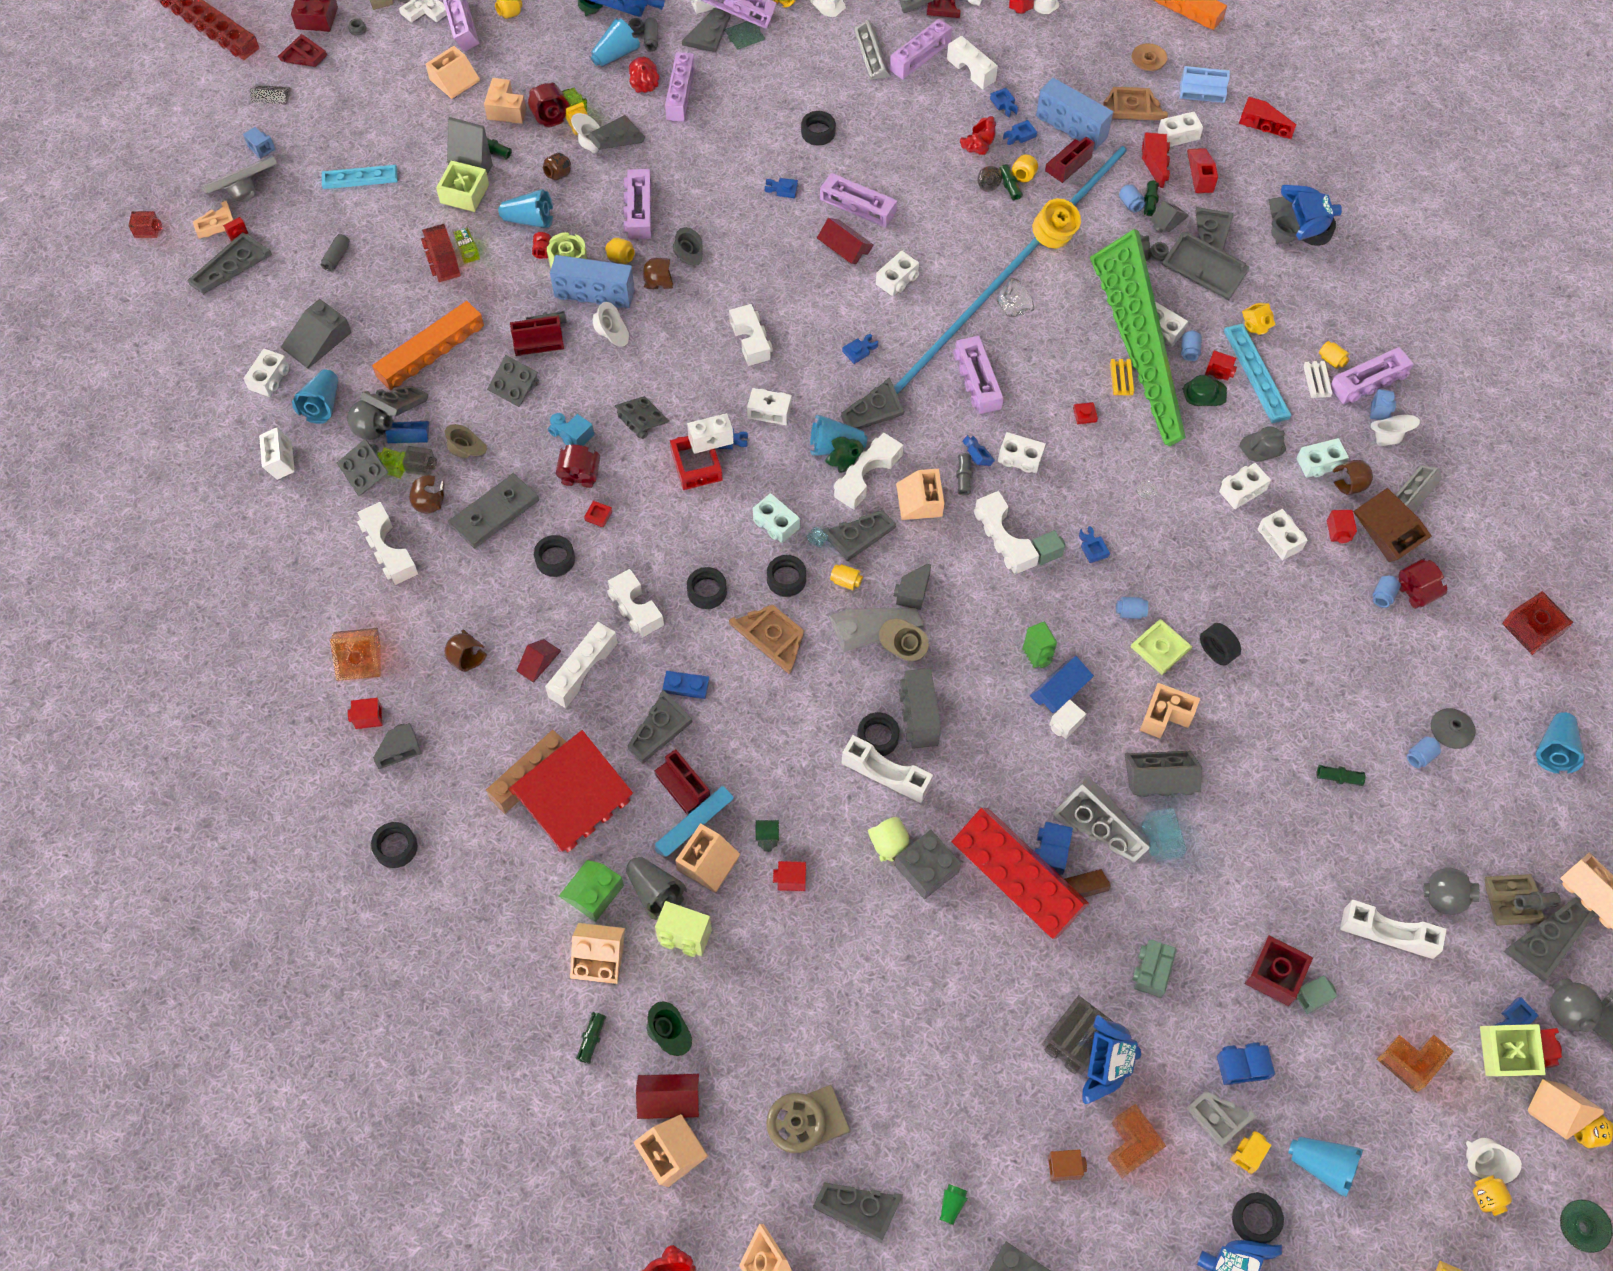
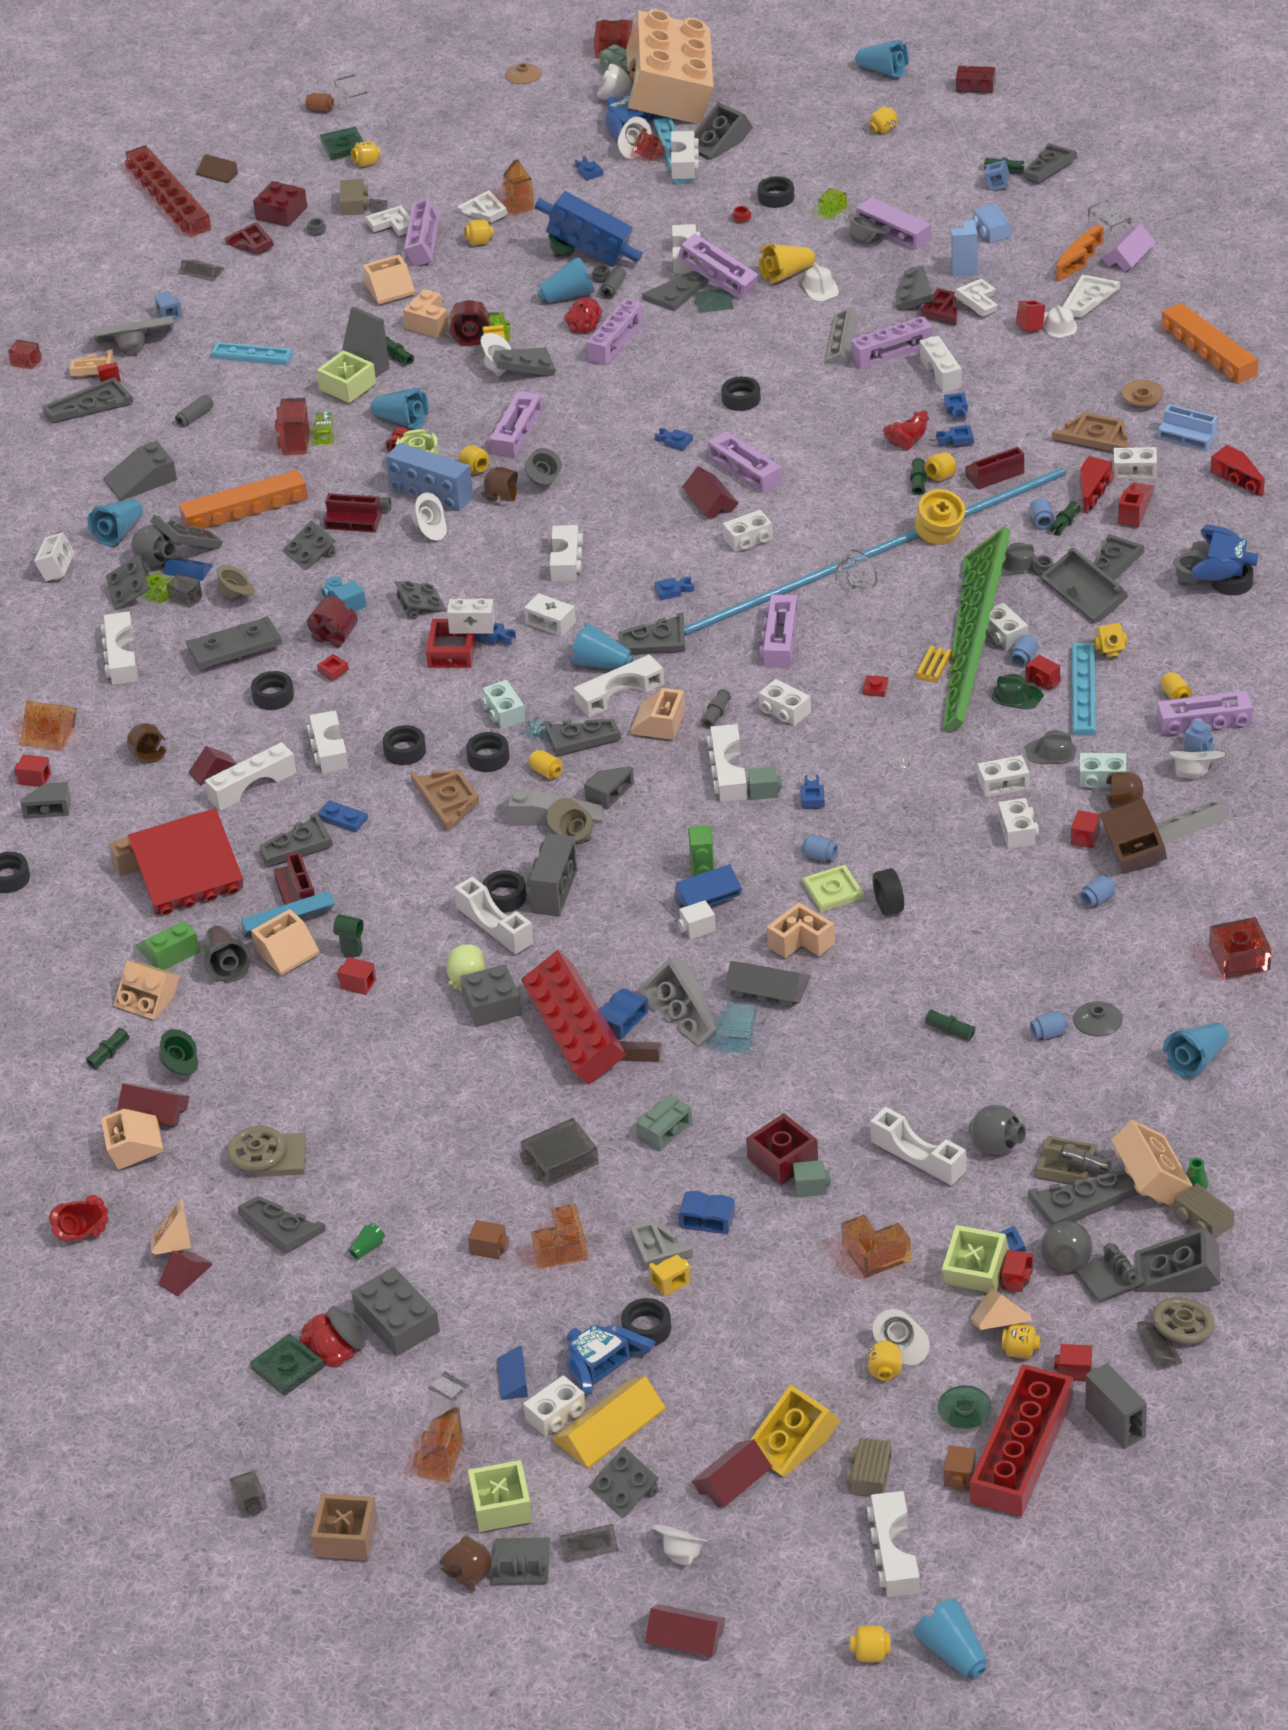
camera: 25 degrees right, 20 degrees down
(266, 372) = (78, 493): white brick -> none
(425, 501) = (173, 621): reddish brown helmet -> none
(556, 166) = (450, 378): reddish brown head -> none
(683, 929) = (232, 984): yellowish green brick -> none
(843, 455) = (595, 662): dark green plate -> none
(979, 453) = (740, 695): blue plate -> none
(989, 178) = (896, 468): clear smoke brick -> none
(1073, 112) = (1020, 425): medium blue brick -> none
(1110, 1059) = (576, 1165): blue torso -> none
(1167, 217) = (1070, 534): dark grey slope -> none
(1327, 1161) = (742, 1298): dark azure cone -> none
(1328, 391) = (1149, 696): white tile -> none
(1422, 583) = (1134, 888): dark red brick -> none

